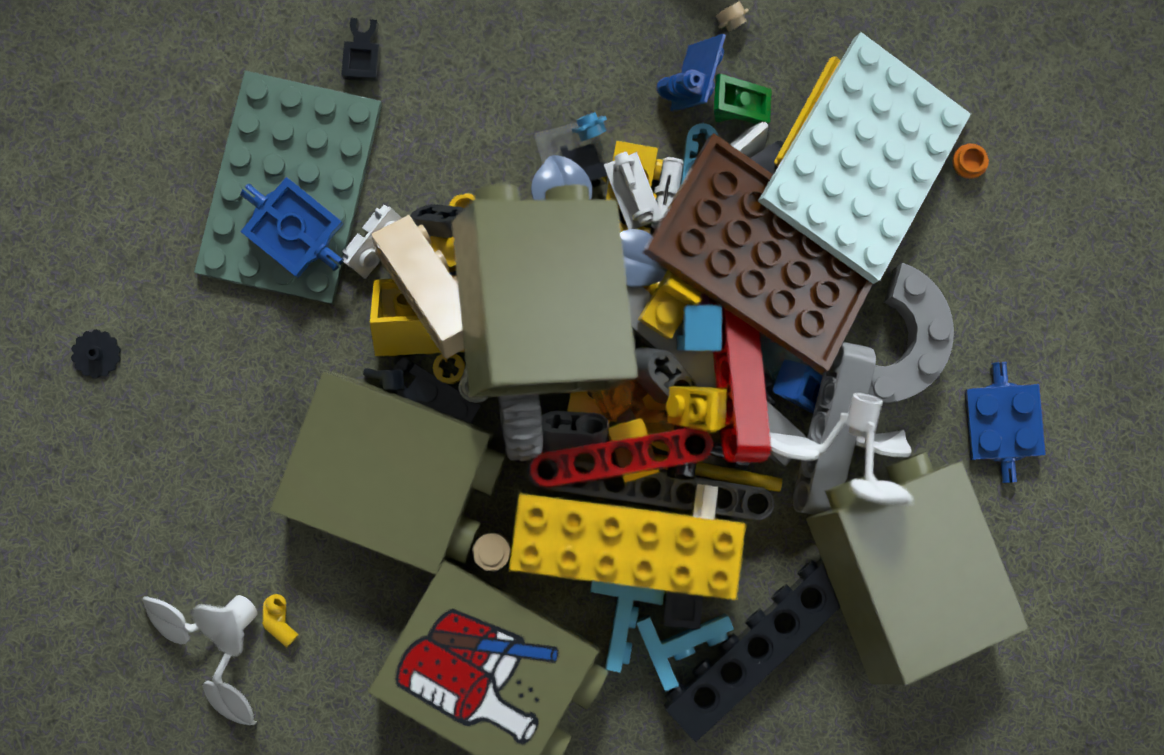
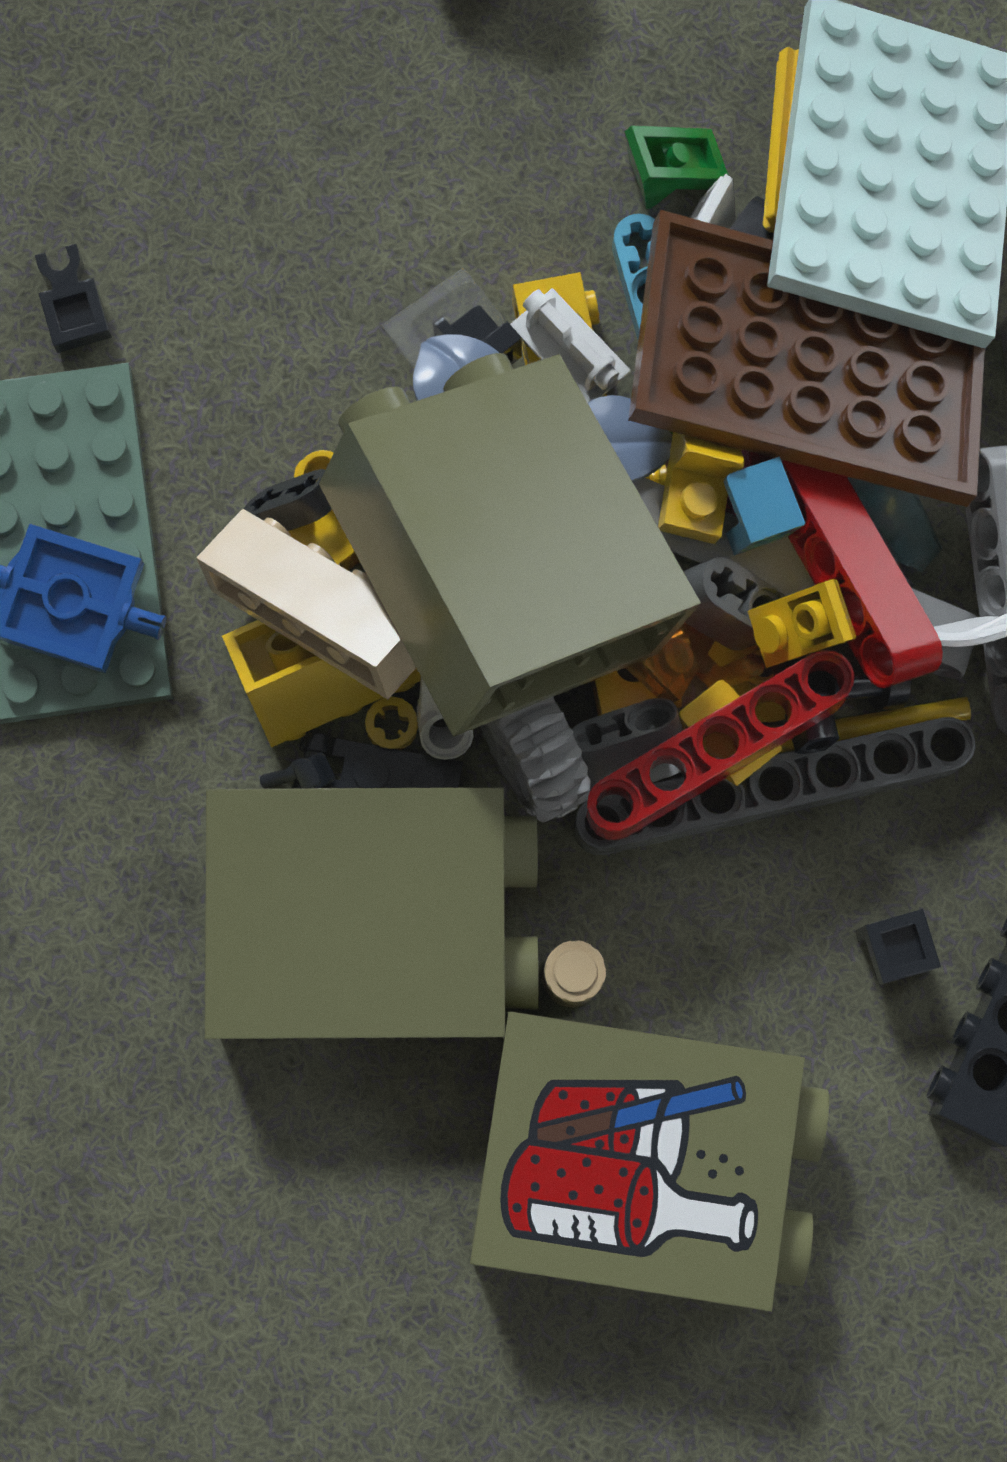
camera: 20 degrees left, 5 degrees down
(225, 629) = (203, 1250): white plant -> none
(275, 620) = (270, 1218): yellow arm -> none
(361, 252) = (189, 599): white hinge -> none
(590, 126) = (464, 279): dark azure plate -> none
(624, 618) = (814, 997): medium azure bracket -> none
(630, 544) = (783, 874): yellow piece -> none
(669, 184) = (615, 308): white pin -> none
(681, 644) = (916, 1010): medium azure bracket -> none
(696, 78) = (594, 147): blue hinge -> none
(732, 16) = (610, 46): tan plate -> none
(798, 384) = (936, 541): blue slope -> none

